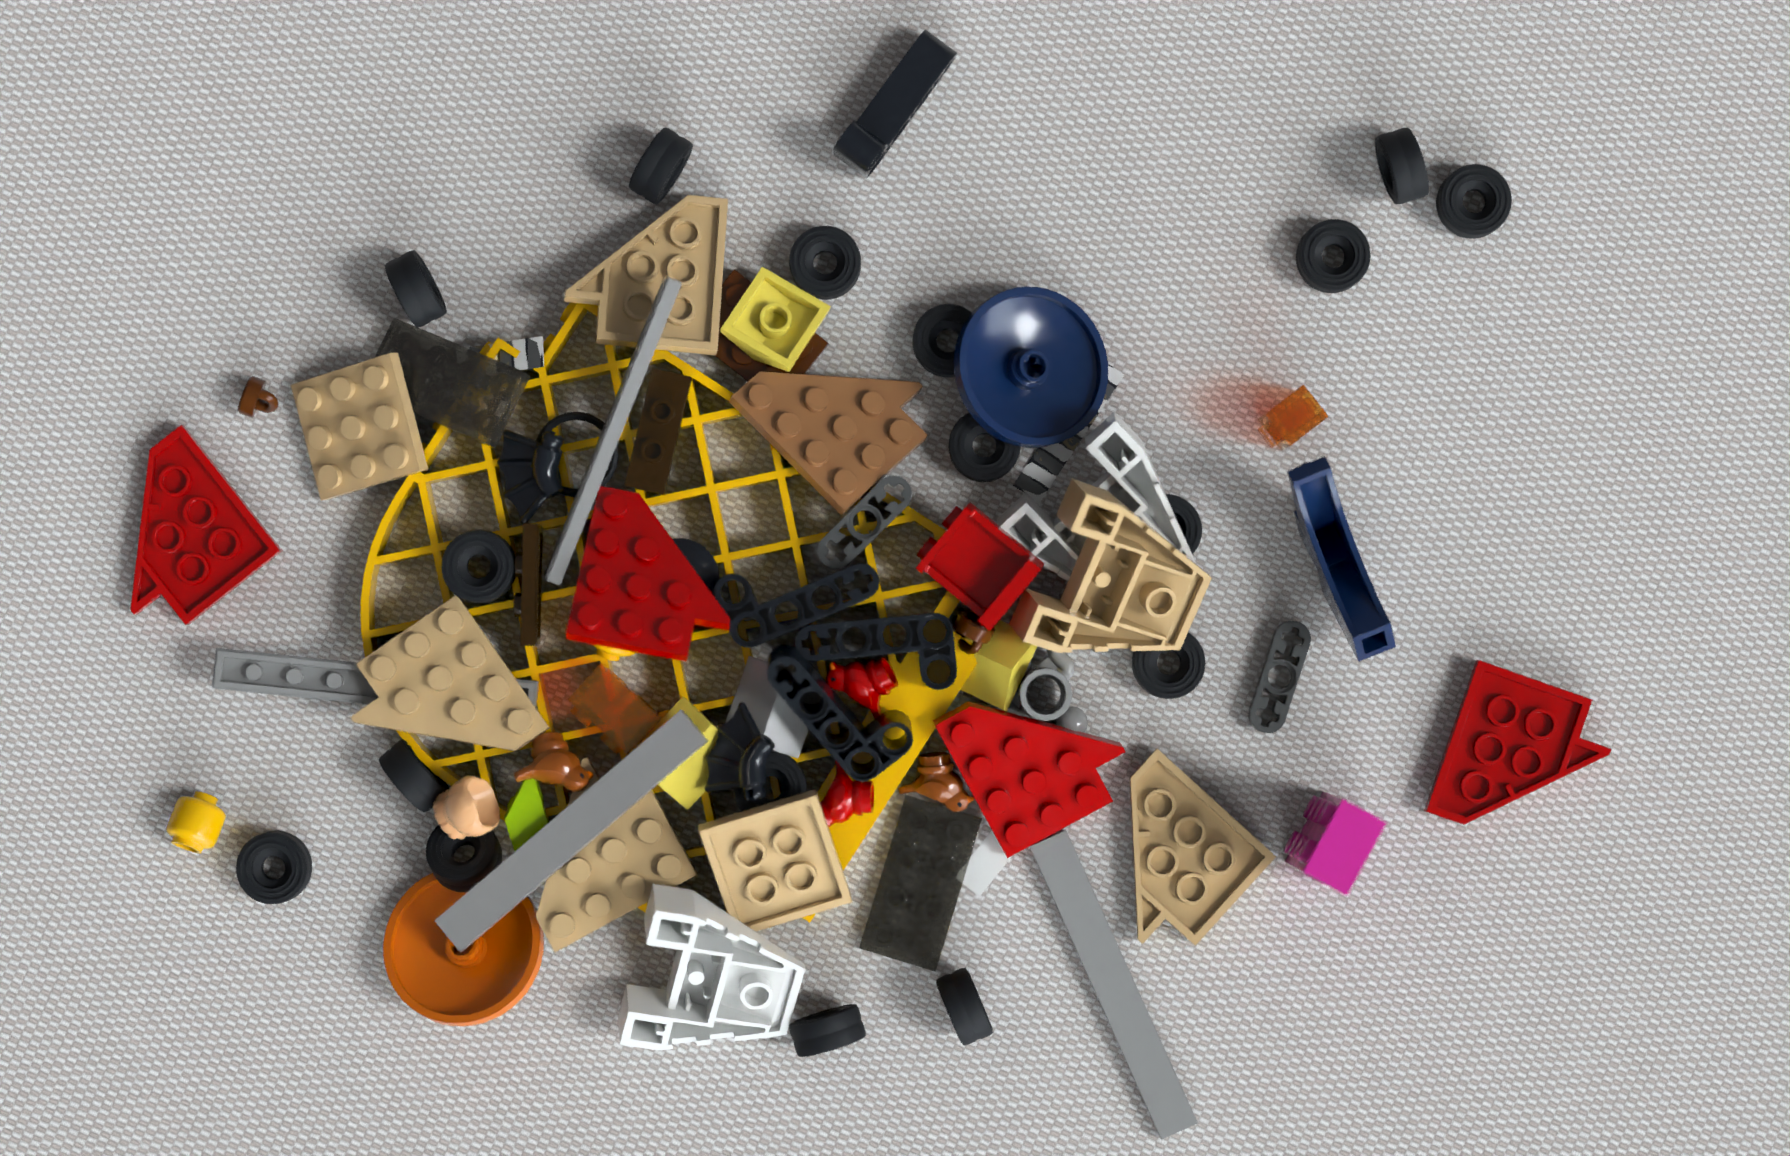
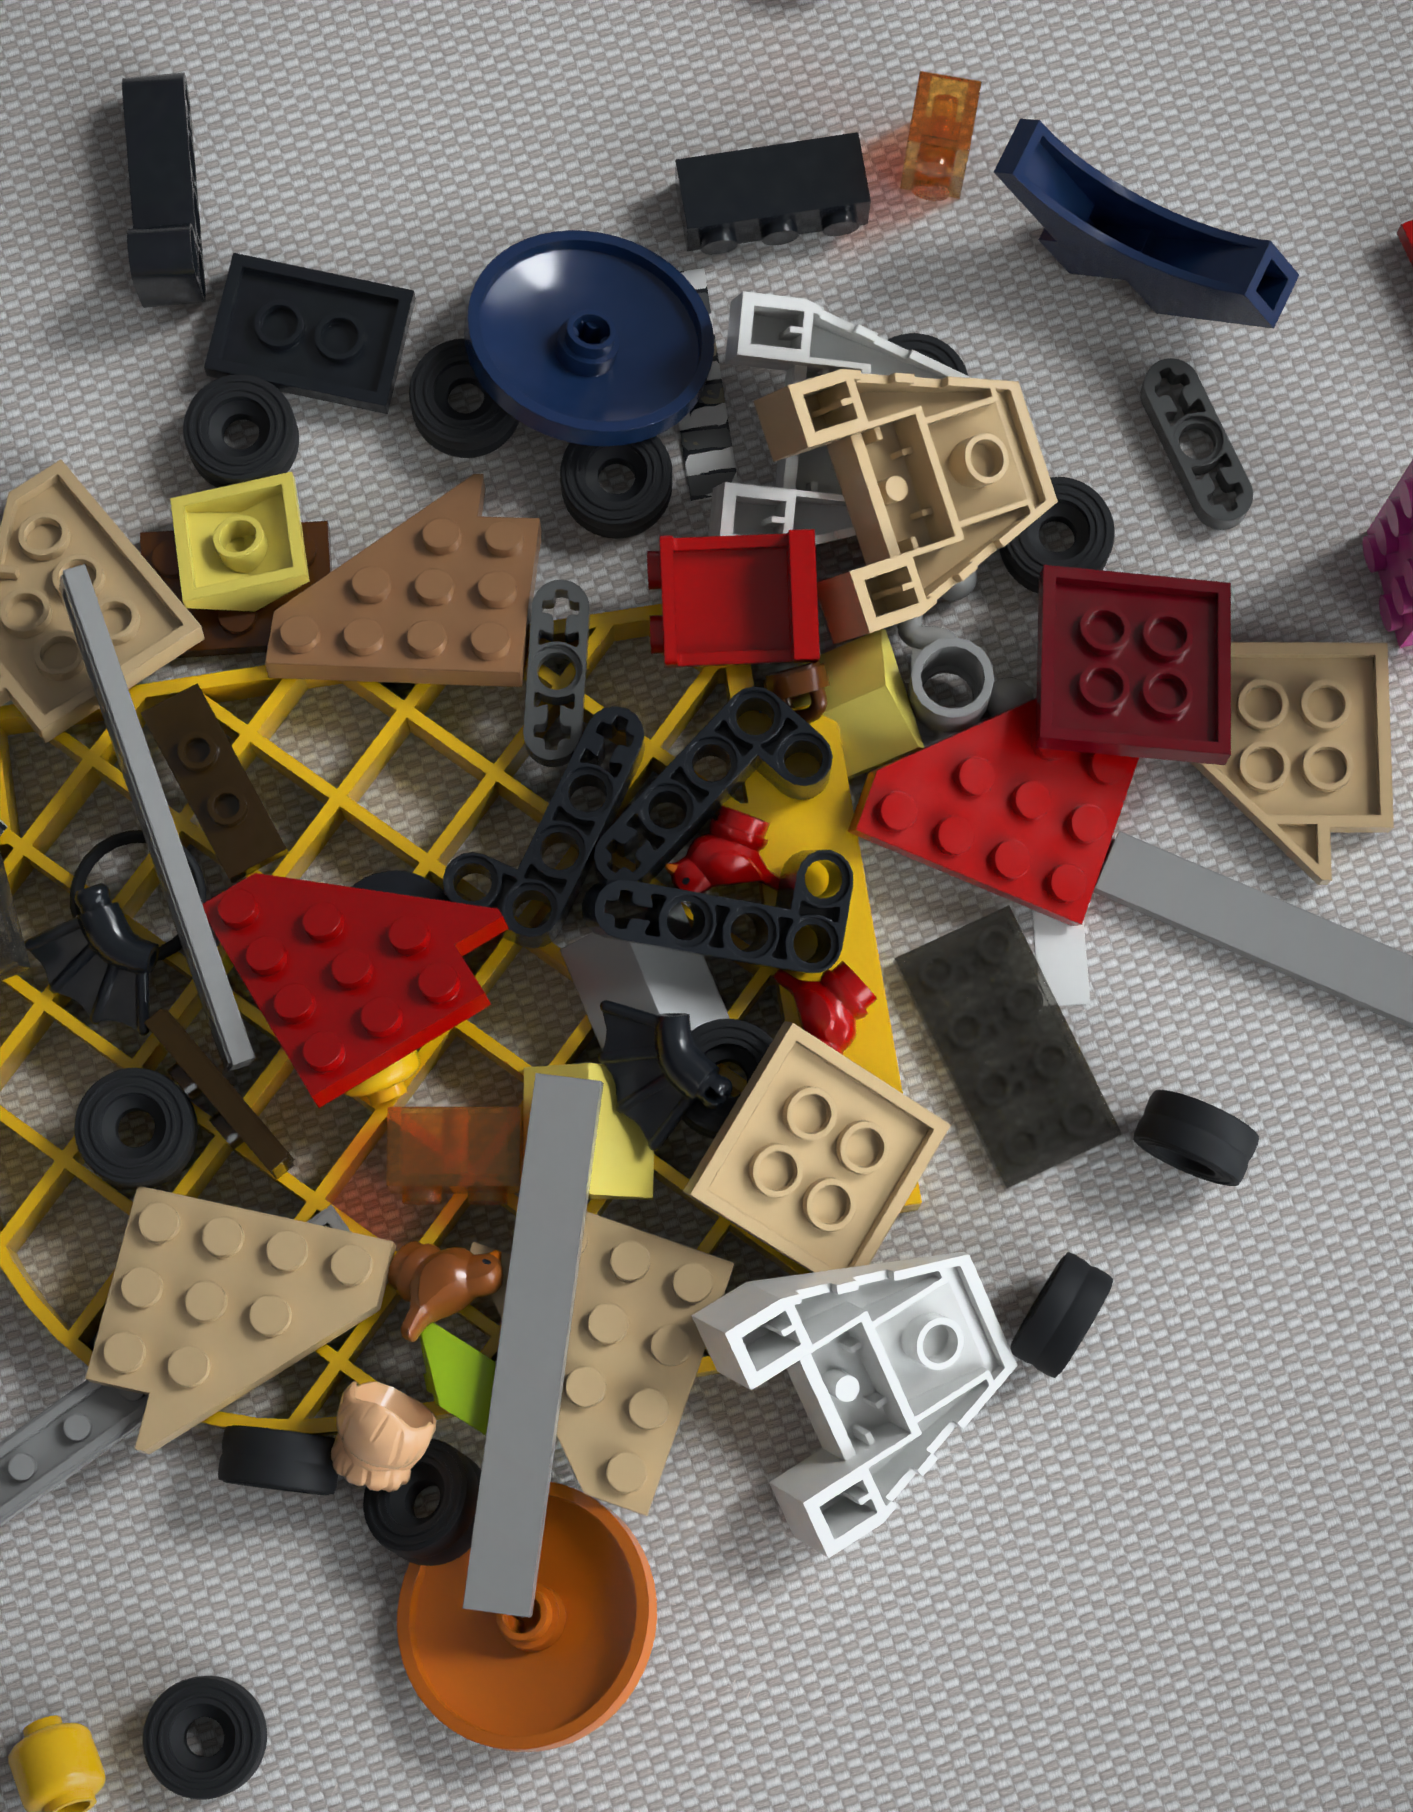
camera: 45 degrees left, 10 degrees down
(902, 240) = (311, 332): none -> black plate
(939, 782) = (921, 906): dark orange animal -> none
(1140, 762) = (1134, 665): none -> dark red plate
(1188, 371) = (772, 193): none -> black brick

